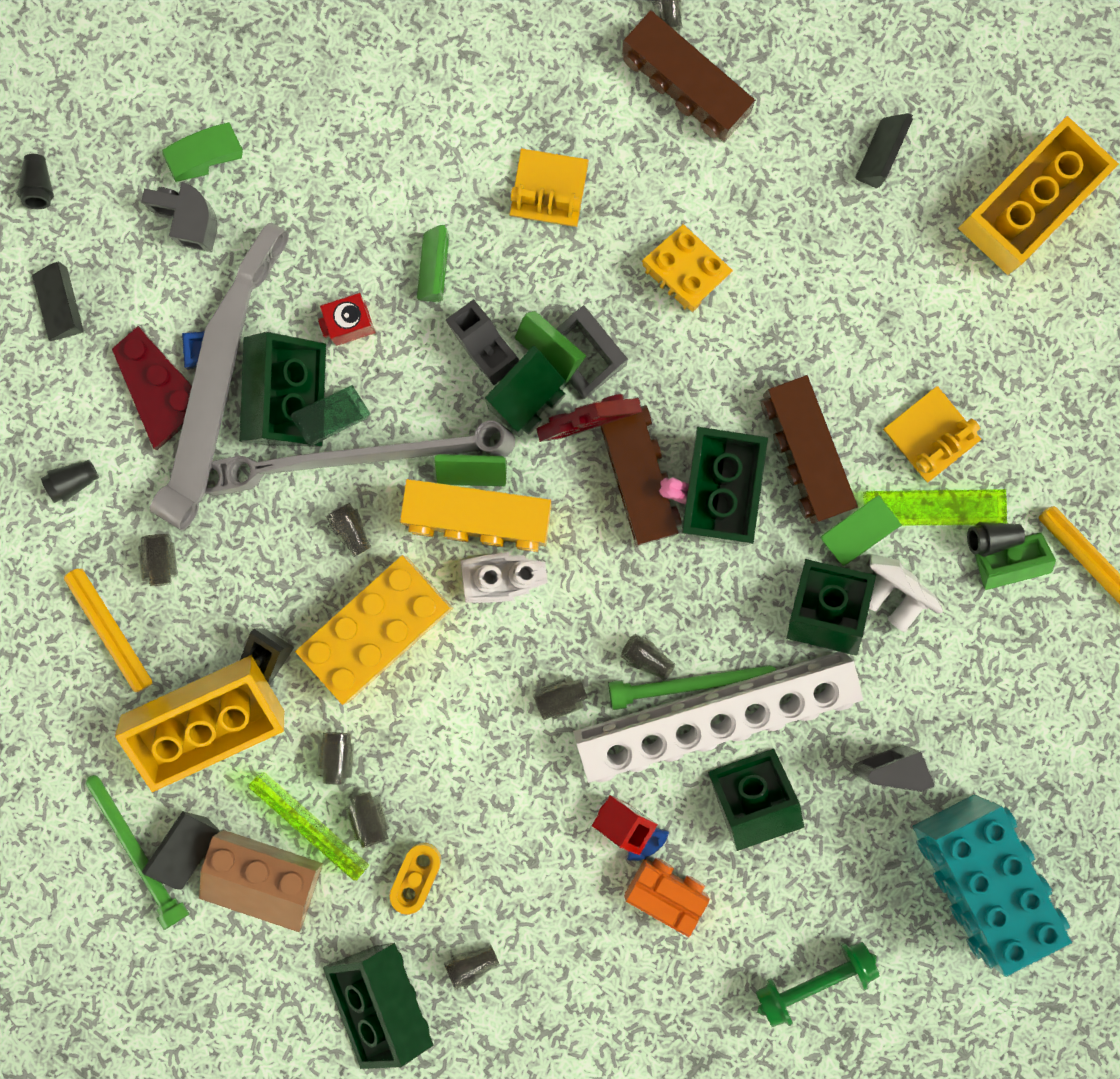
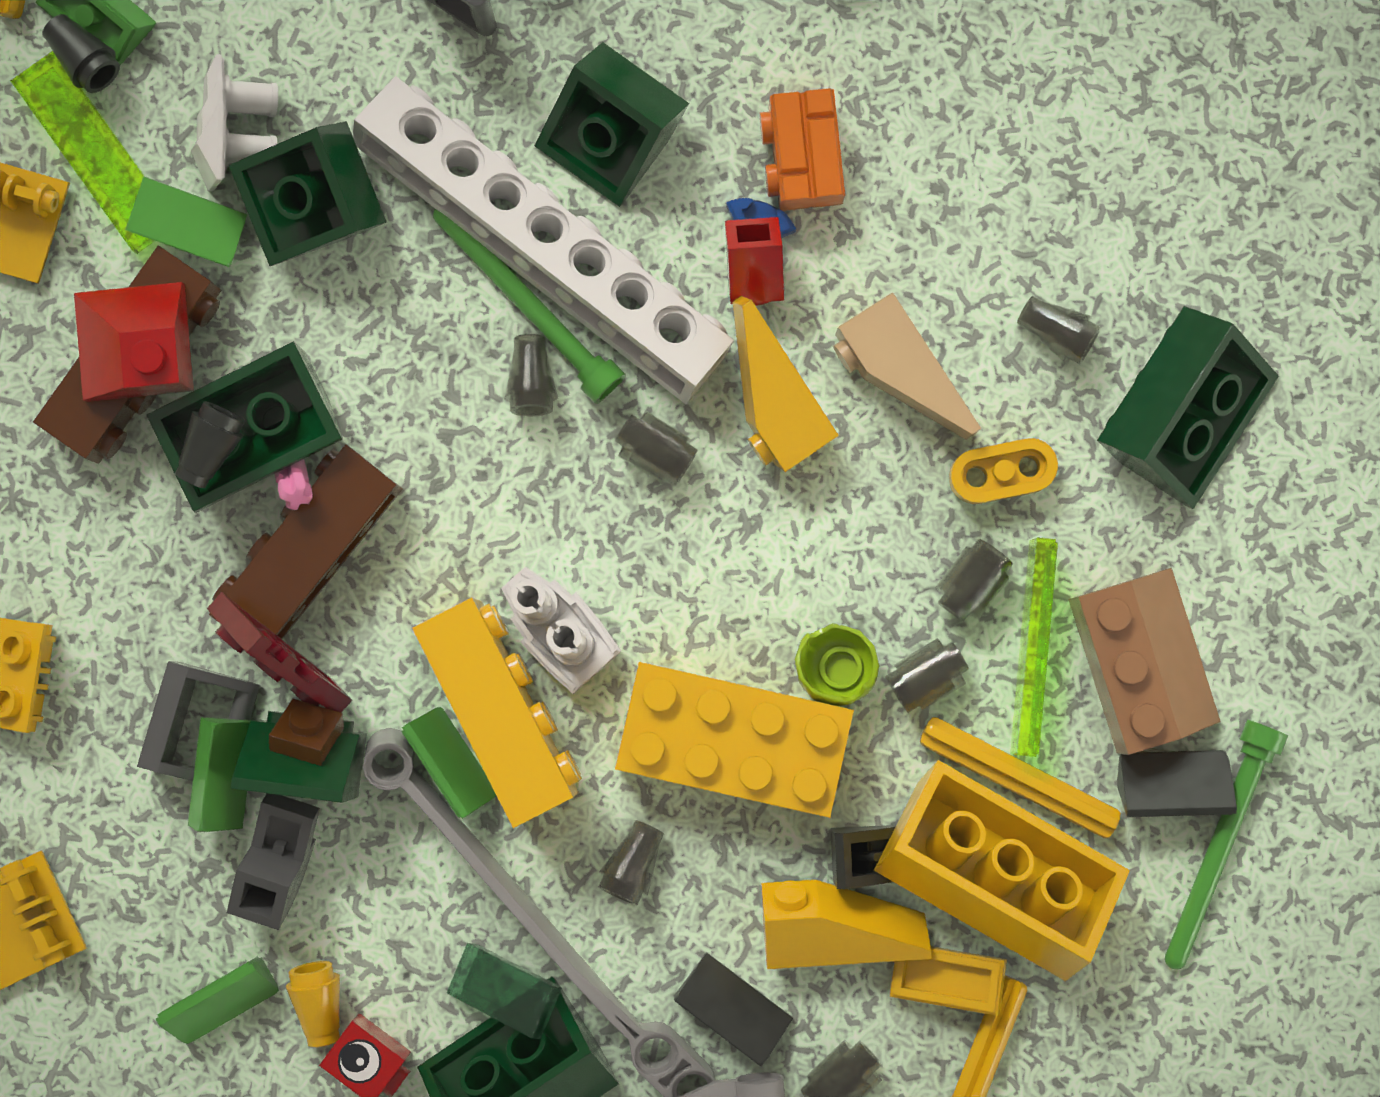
camera: 125 degrees left, 0 degrees up
(169, 653) = (952, 980): none -> yellow tile
(236, 528) = (733, 1009): none -> pearl dark grey slope
(243, 605) = (824, 926): none -> yellow slope
(246, 768) = (1020, 777): none -> yellow axle
(374, 713) = (837, 665): none -> lime hair
(396, 314) = (316, 1000): none -> yellow cone
(517, 864) = (898, 361): none -> tan slope
(537, 405) = (306, 732): none -> reddish brown plate
(542, 783) = (776, 399): none -> yellow slope
(727, 459) = (208, 443): none -> pearl dark grey cone
(813, 457) = (133, 341): none -> red slope

